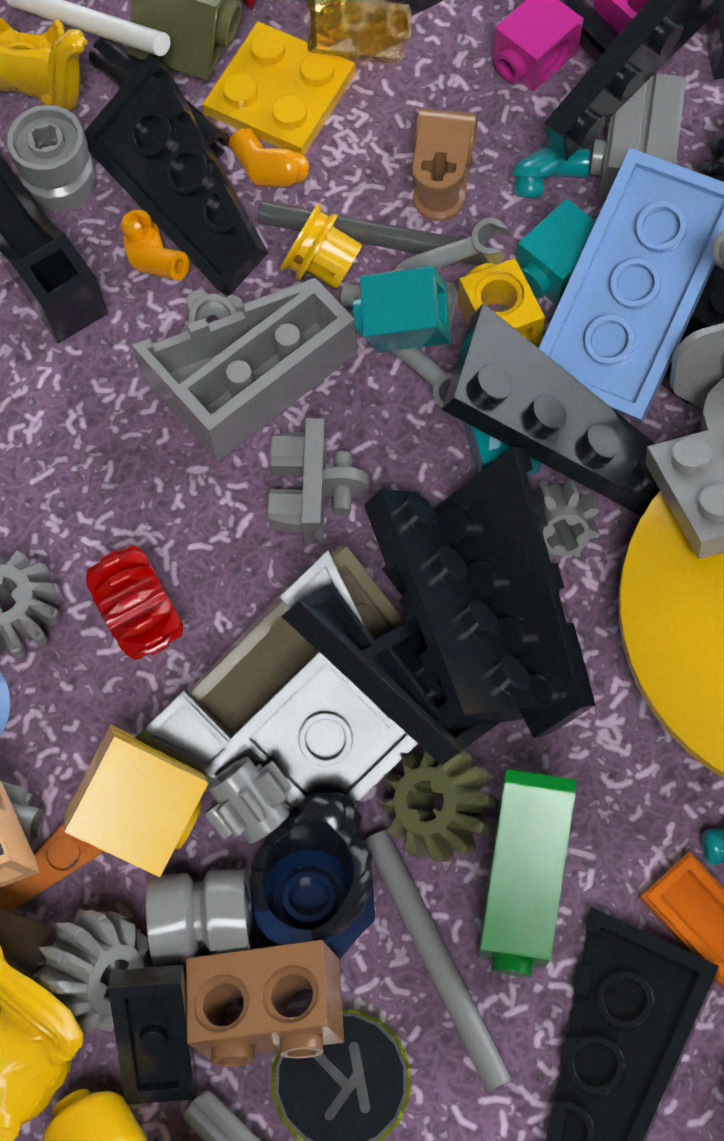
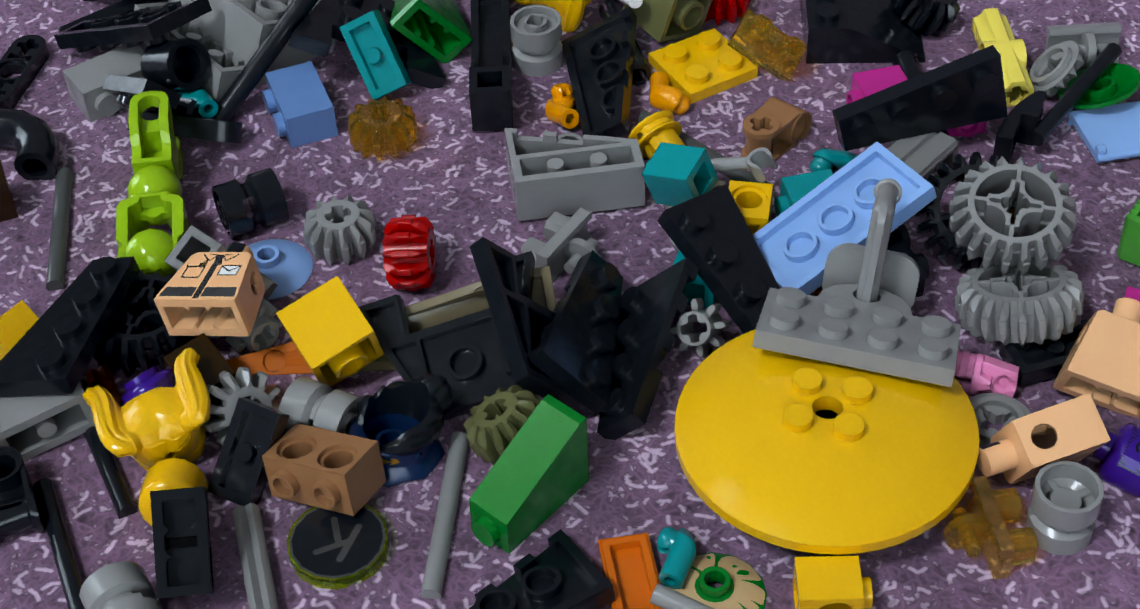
camera: 30 degrees right, 25 degrees down
(248, 800) = (392, 358): light grey gear -> none

